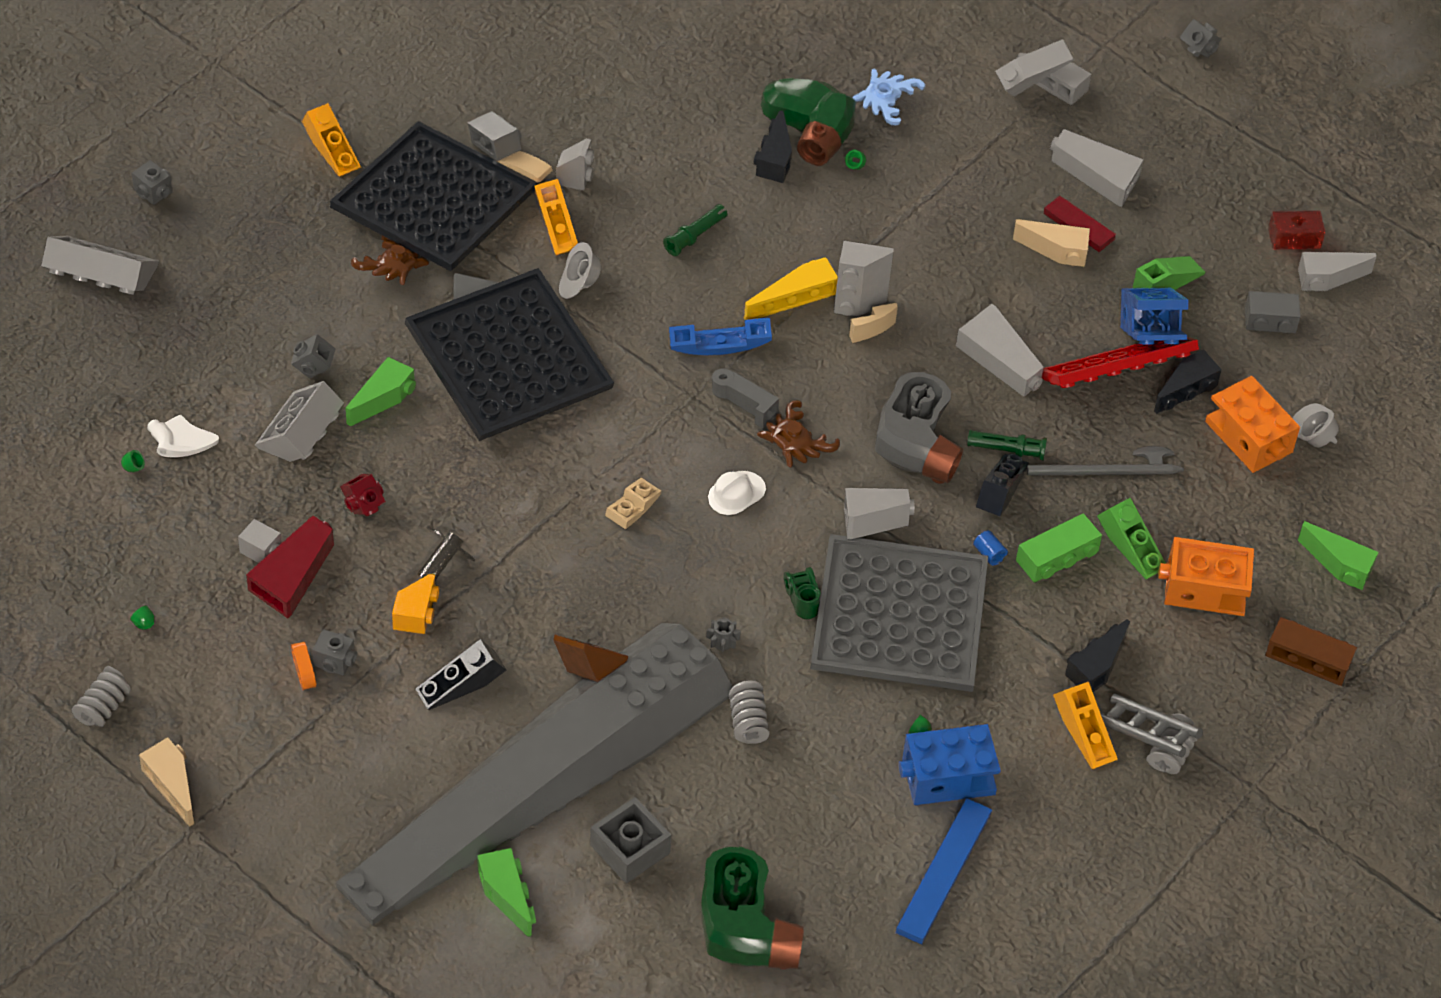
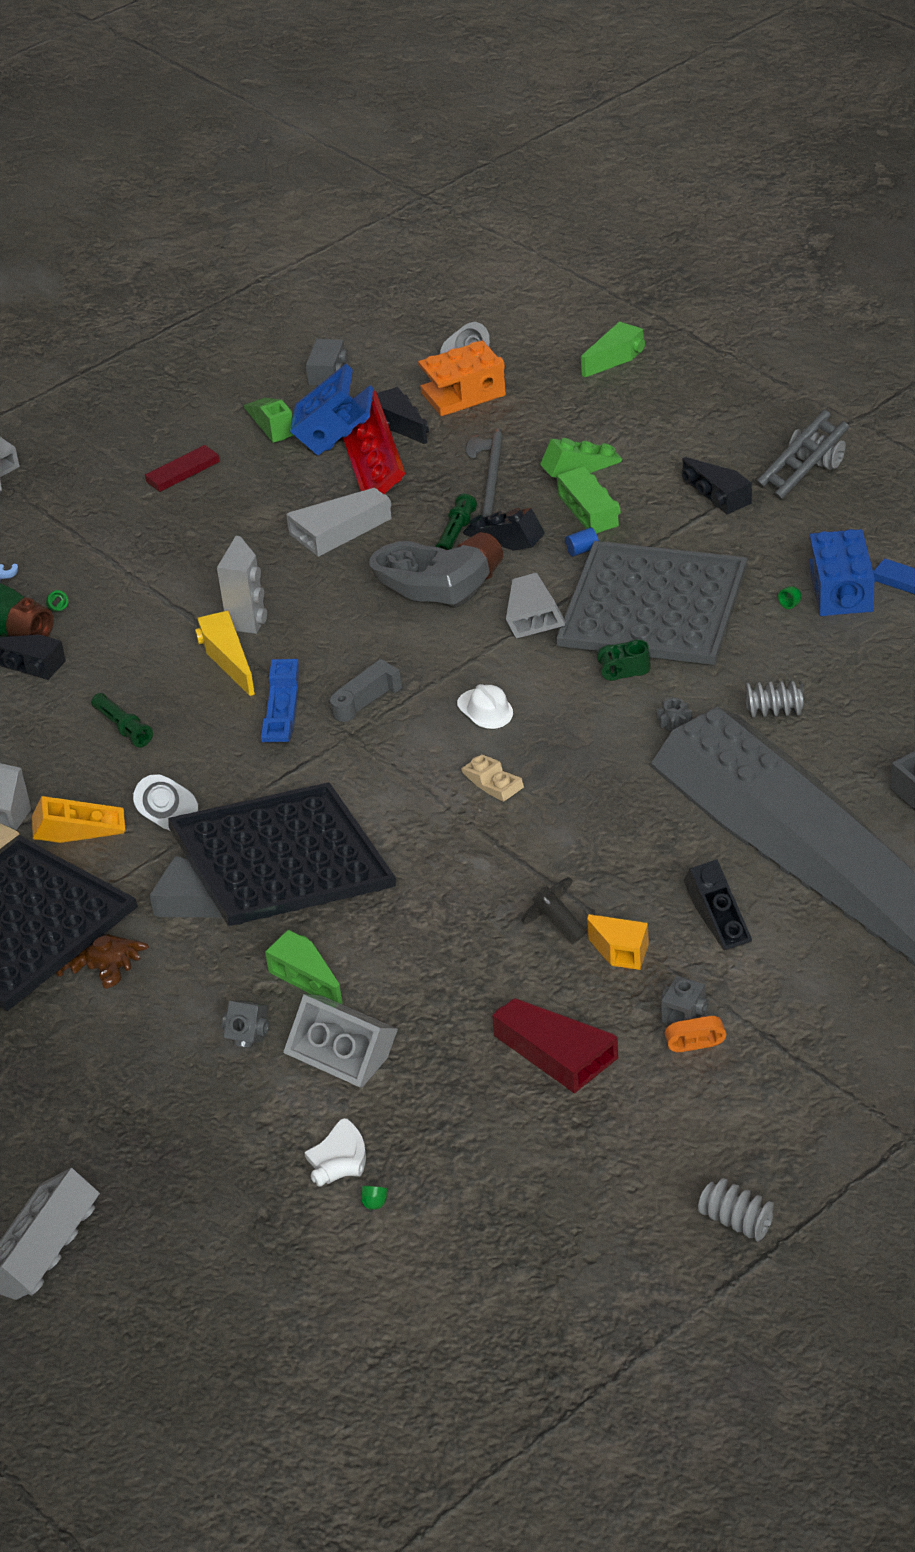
camera: 75 degrees left, 10 degrees down
(143, 618) = (614, 1180): green hinge -> none
(167, 771) = (850, 1144): tan slope -> none
(258, 541) = (516, 1072): light grey brick -> none
(363, 494) = (462, 977): dark red brick -> none
(587, 659) = (708, 801): reddish brown slope -> none
(794, 437) = (424, 659): reddish brown animal -> none
(869, 326) = (284, 598): tan slope -> none
(1055, 241) = (207, 478): tan slope -> none
(1086, 724) = (787, 497): light orange slope -> none
(1097, 165) = (115, 447): light grey slope -> none
(1208, 576) = (637, 411): orange torso -> none
(1296, 230) = (228, 341): clear red brick -> none
(1311, 651) = (716, 372): reddish brown brick -> none
(1331, 269) = (282, 329): light grey slope -> none

